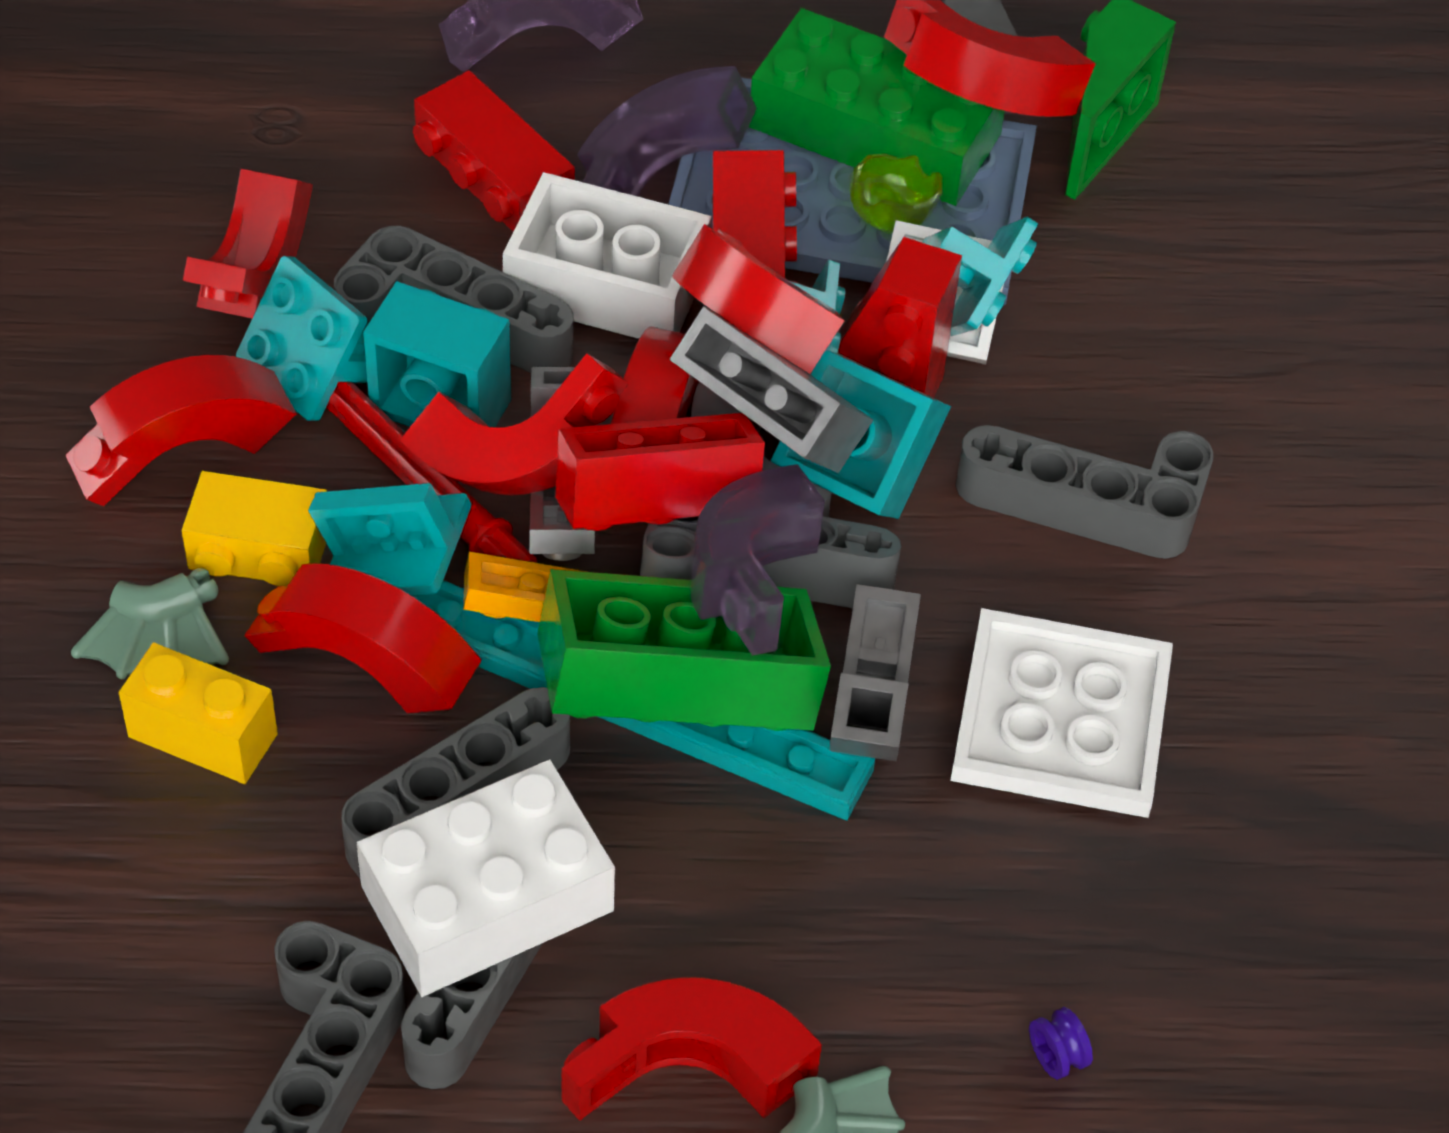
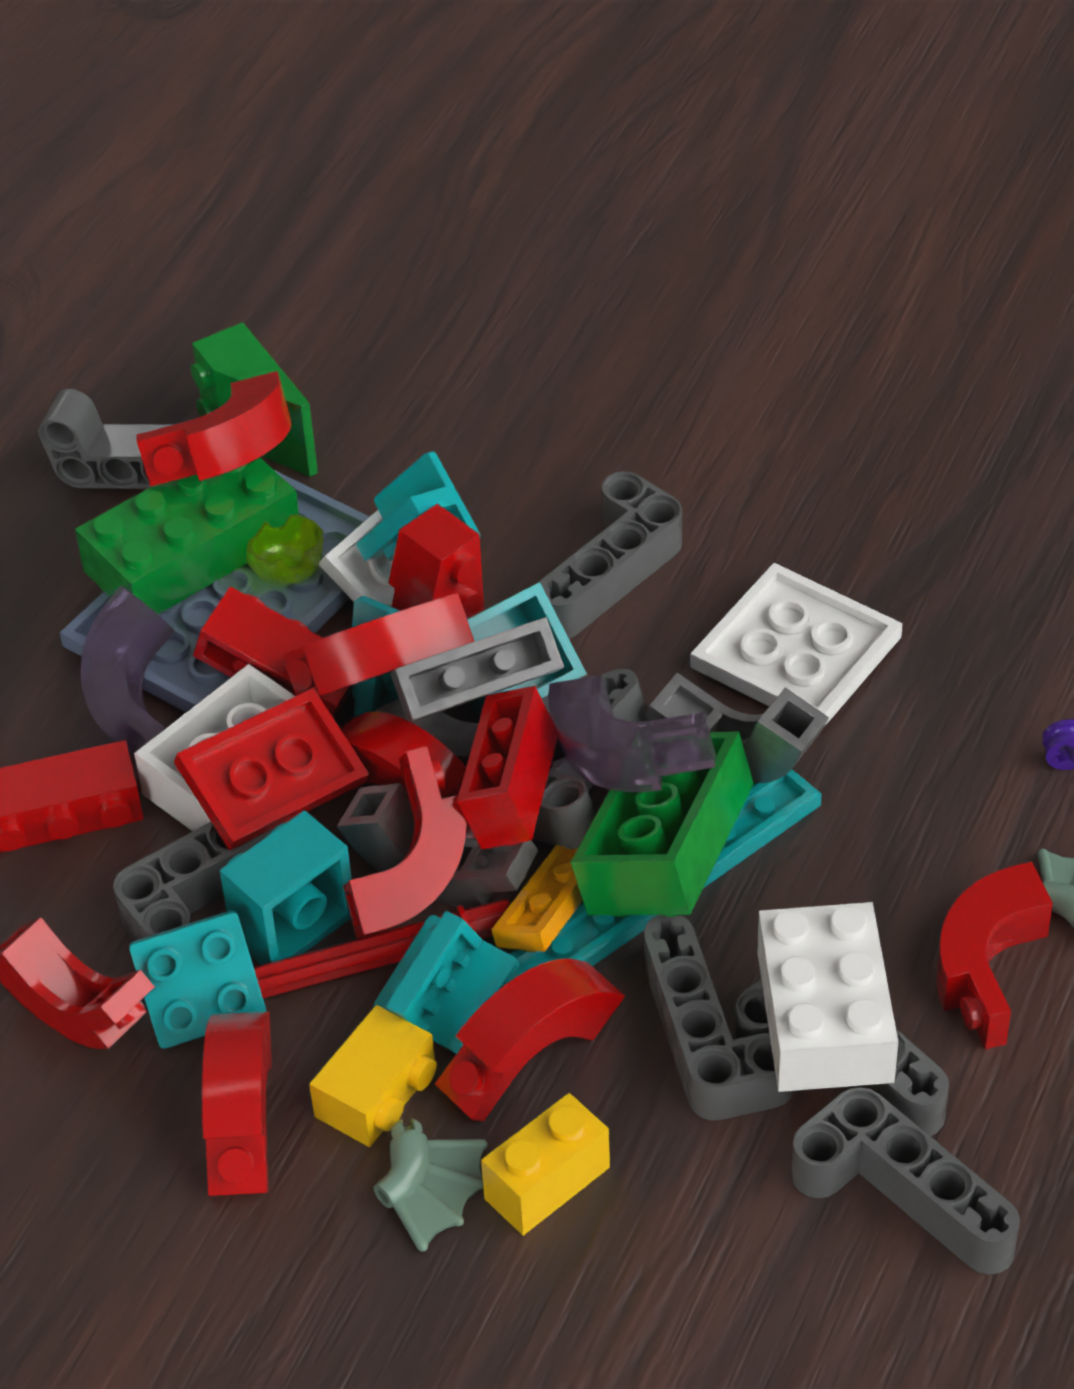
camera: 60 degrees left, 5 degrees down
(567, 279) = (271, 768): none -> red plate

